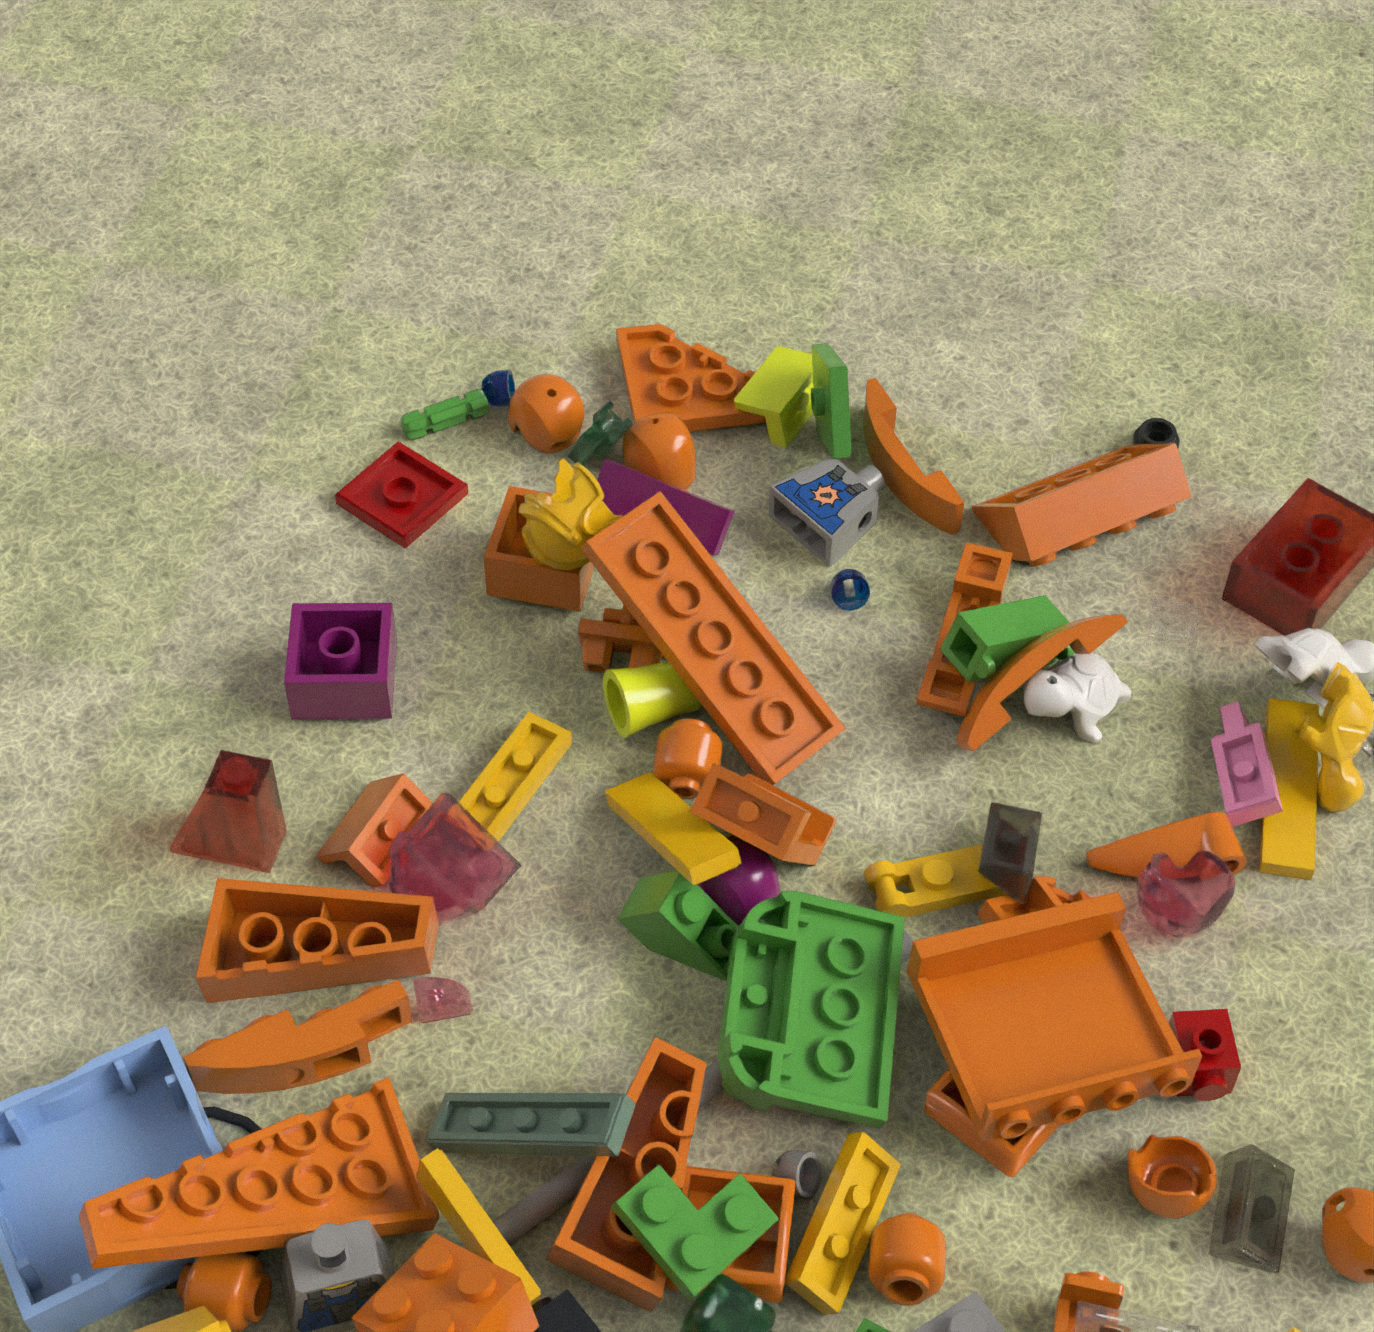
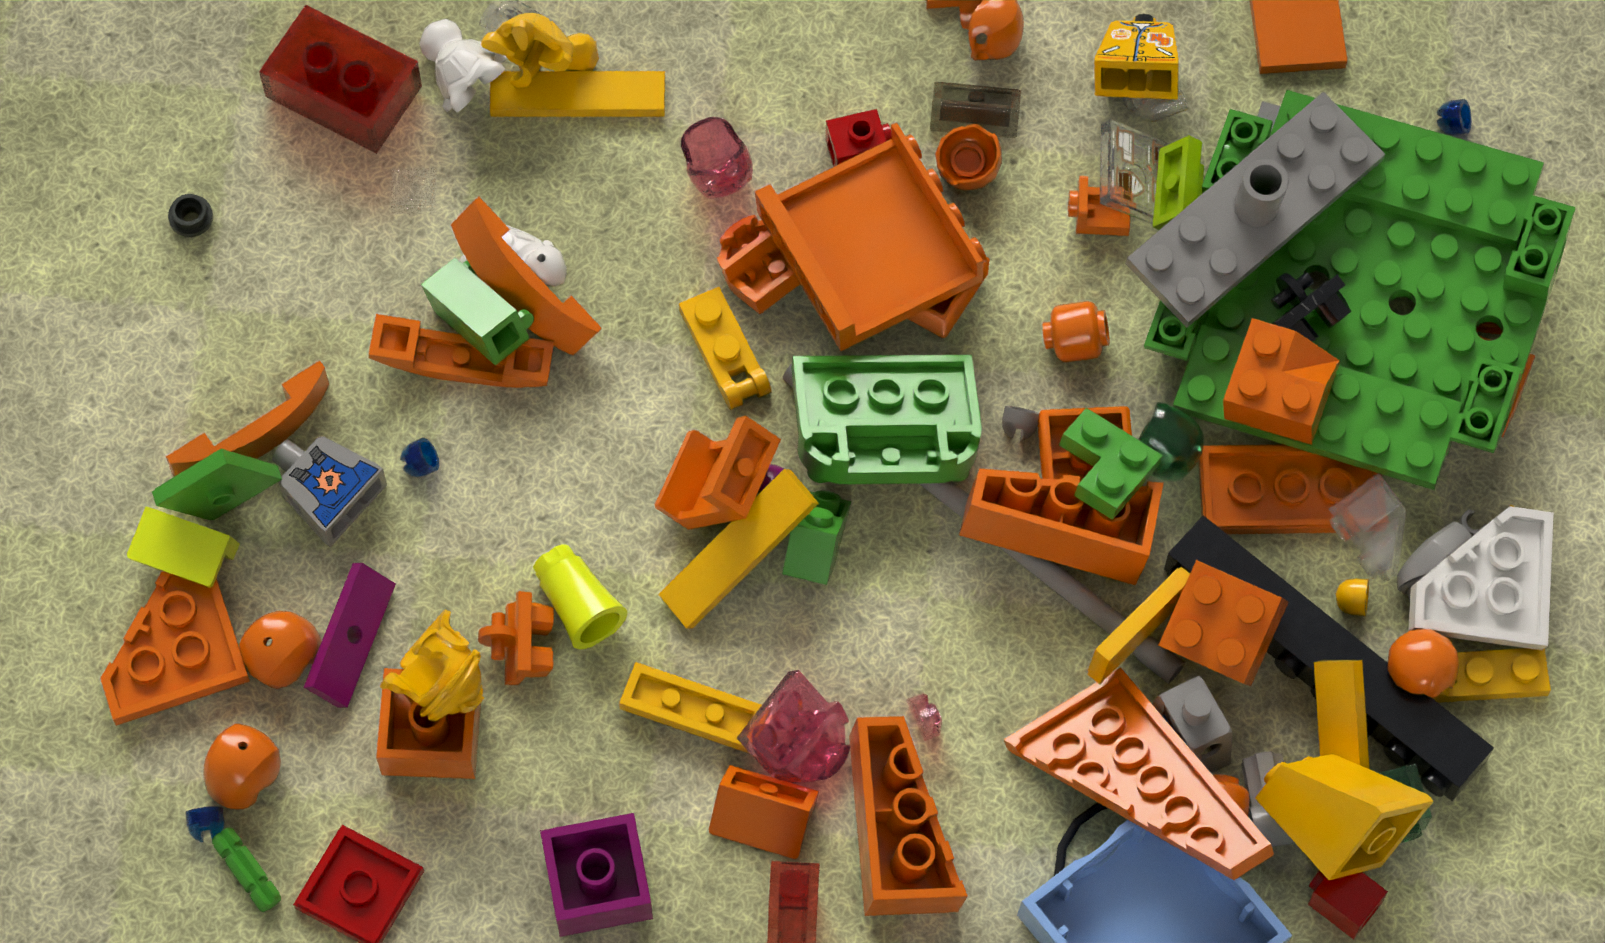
camera: 100 degrees left, 15 degrees up
(283, 1056) = (1004, 824): orange slope -> none
(532, 1123) = (1043, 603): sand green tile -> none
(601, 436) = (268, 705): clear green plate -> none
(686, 755) = (646, 560): orange head -> none
(713, 638) = (536, 542): orange plate -> none
(842, 1223) = (1055, 380): yellow plate -> none
(1010, 849) = (697, 288): clear smoke slope -> none
(1086, 501) = (282, 269): orange slope -> none
(1178, 839) = (664, 167): orange piece -> none
(1244, 768) = (575, 122): bright pink hinge -> none

